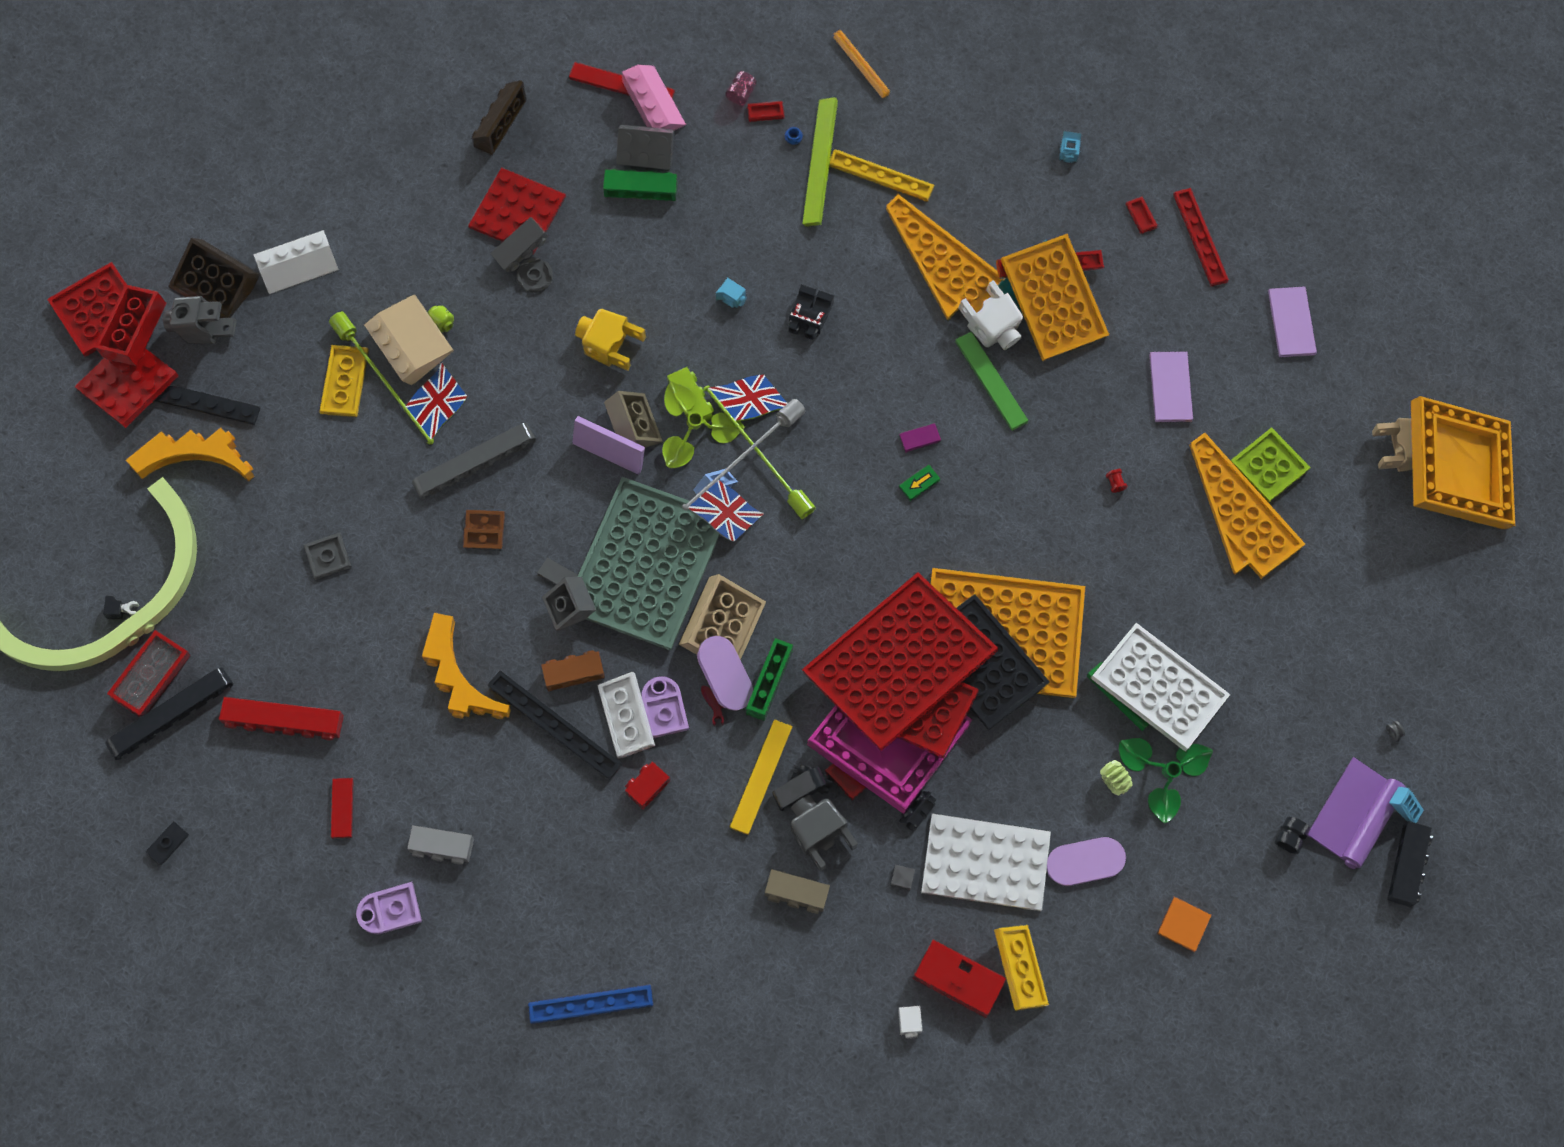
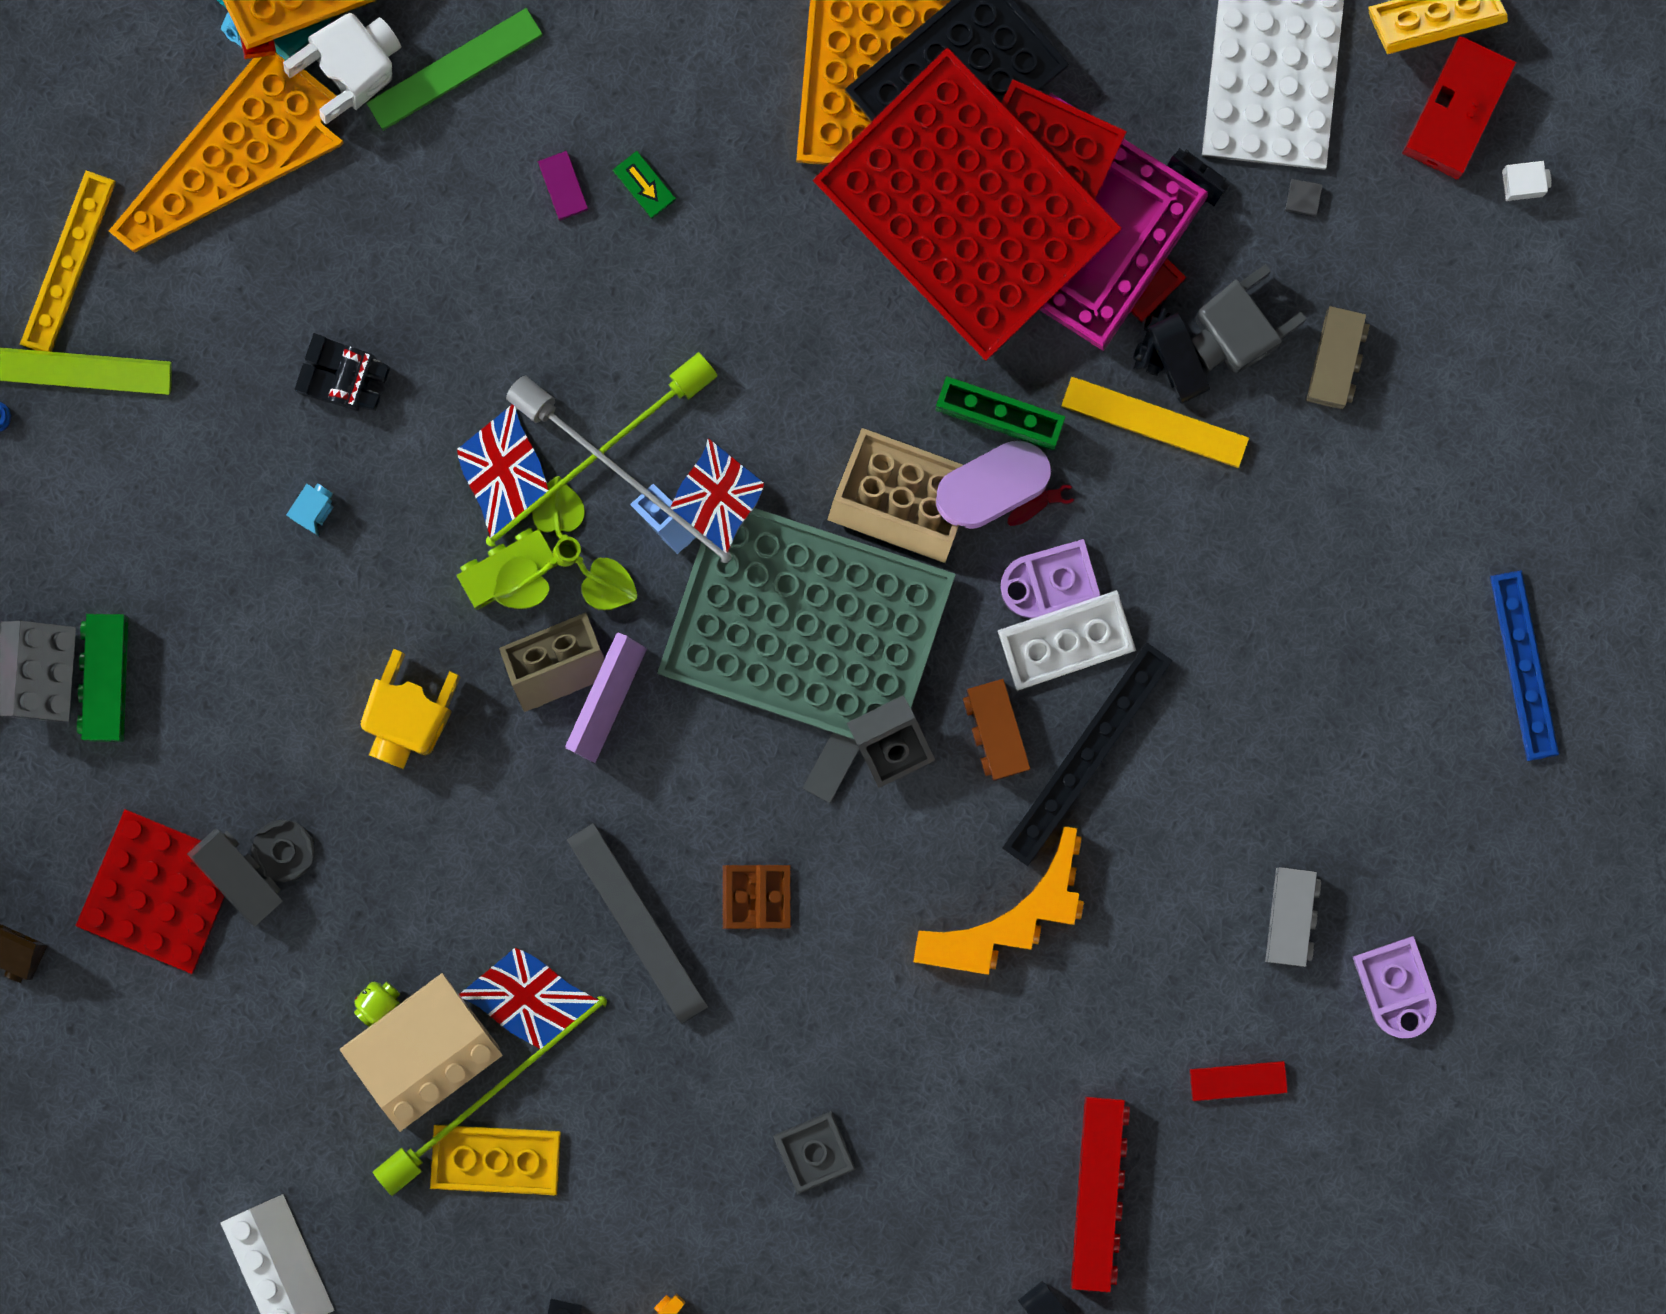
camera: 90 degrees left, 15 degrees up
(647, 784) = (1179, 599): red brick -> none

